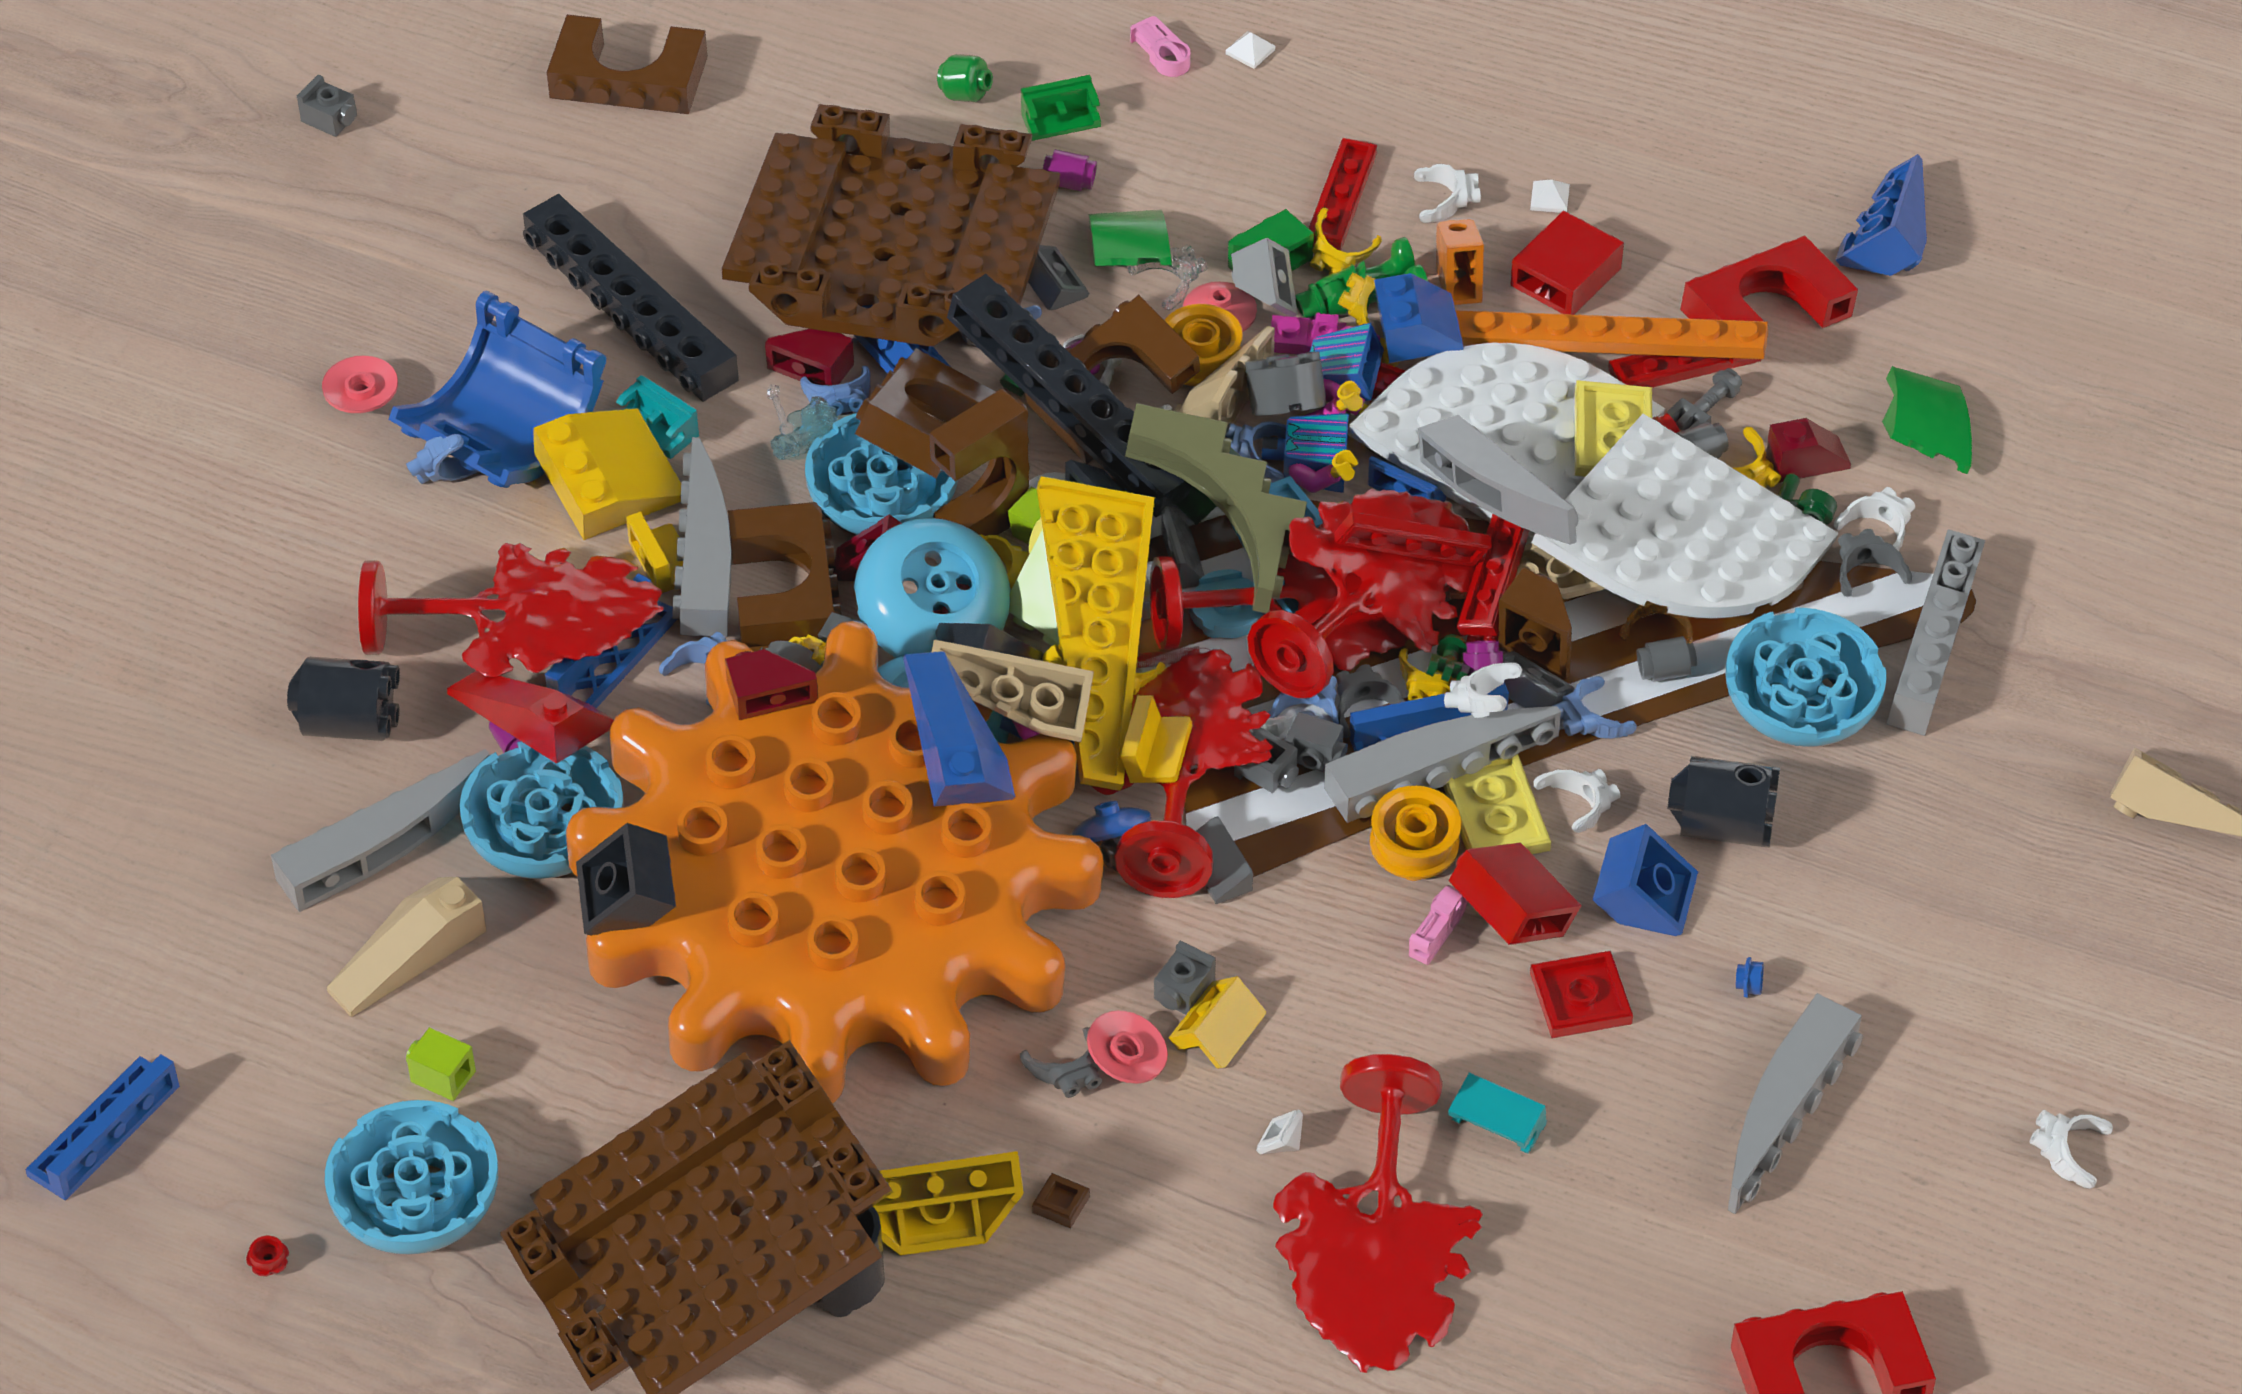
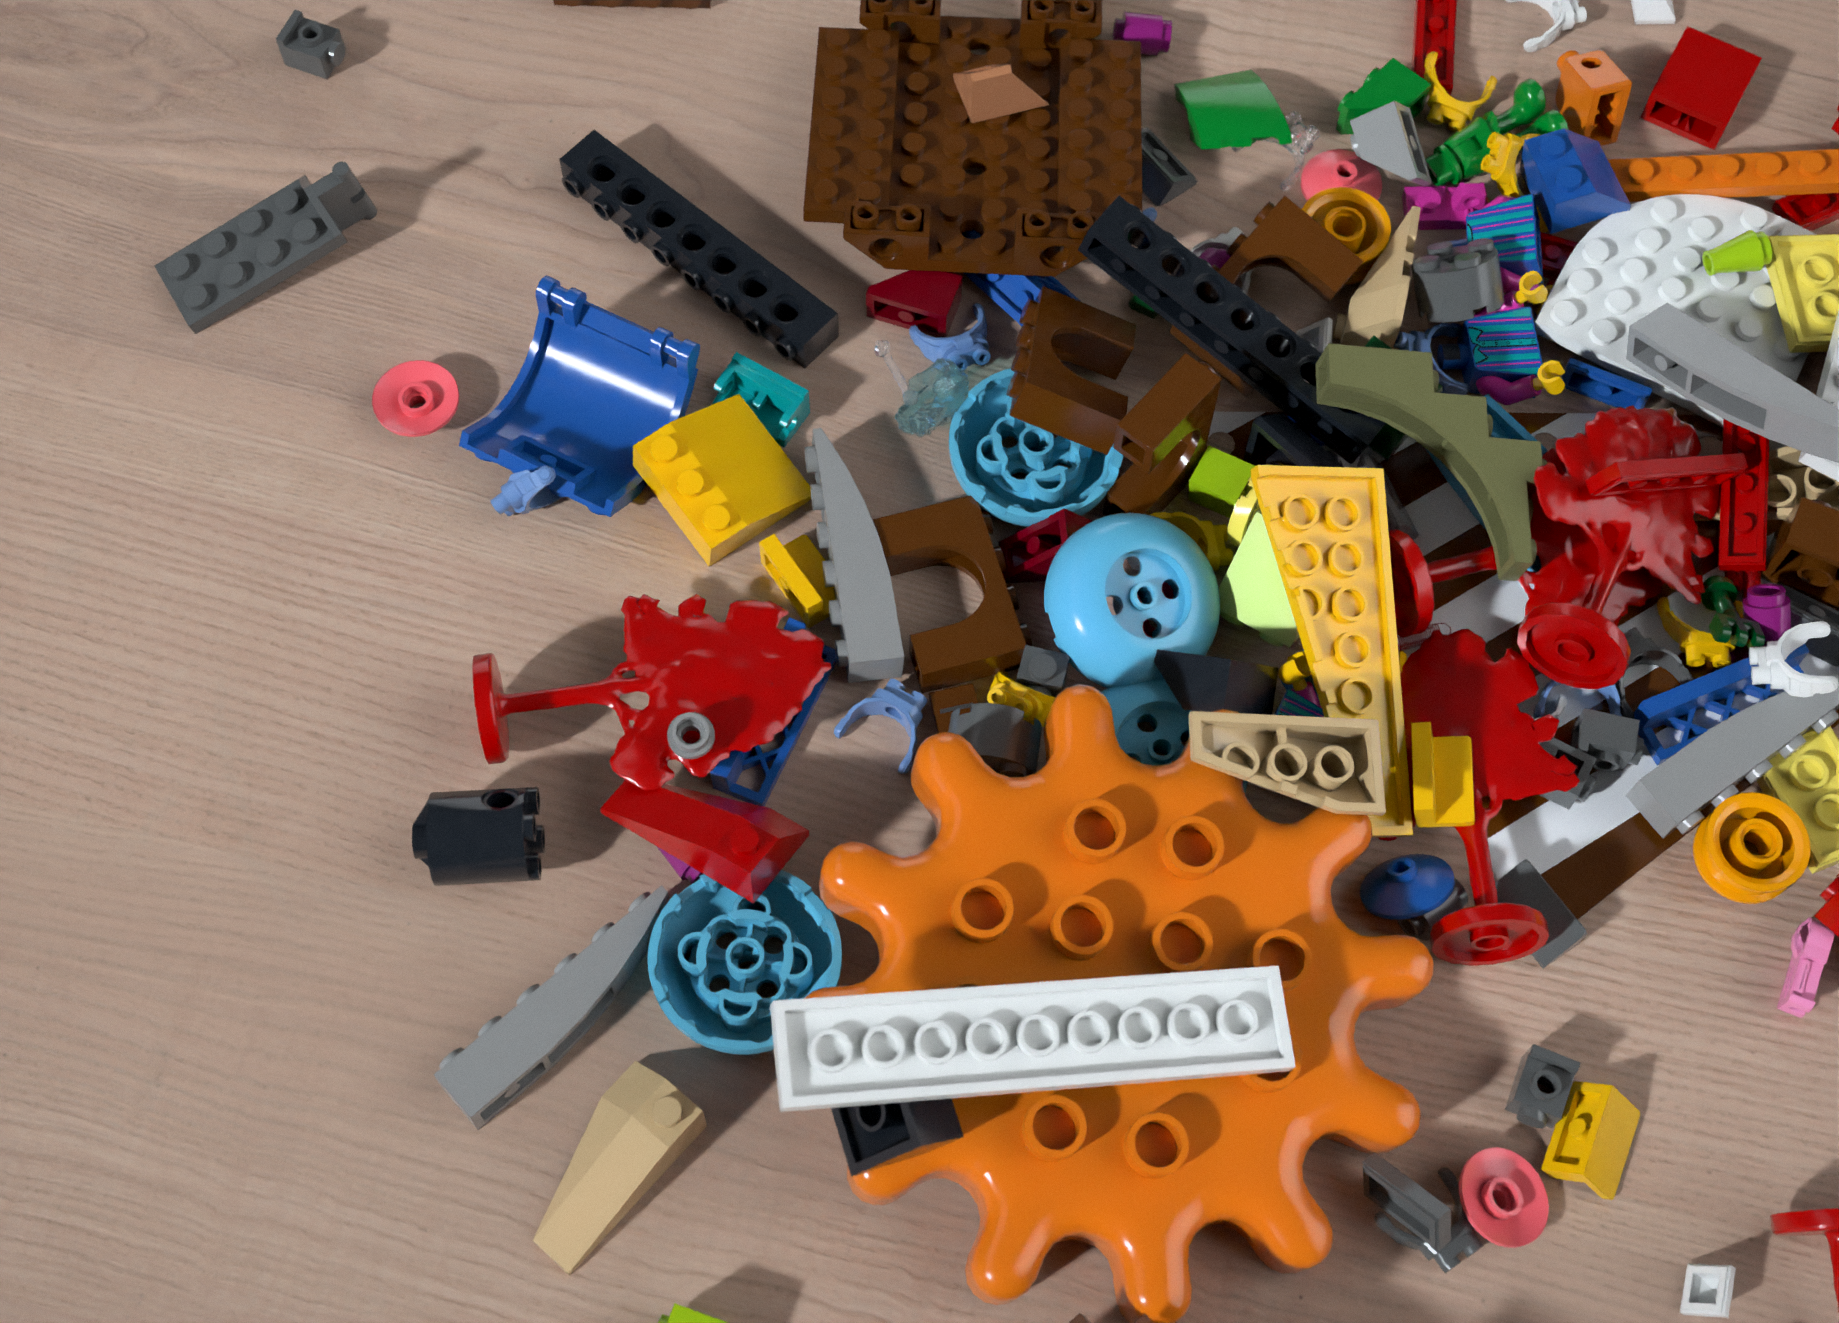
camera: 10 degrees left, 15 degrees up
(257, 254) = (264, 246): none -> dark grey hinge
(528, 628) = (691, 722): none -> light grey plate
(743, 833) = (1028, 1037): none -> white plate
(768, 683) = (1004, 798): dark red slope -> none
(914, 196) = (994, 92): none -> nougat slope
(956, 742) = (1247, 847): blue wedge -> none
(1042, 1034) = (1407, 1201): none -> dark grey tile
(1224, 621) = (1451, 539): medium azure plate -> none
(1544, 391) = (1741, 254): none -> lime cone

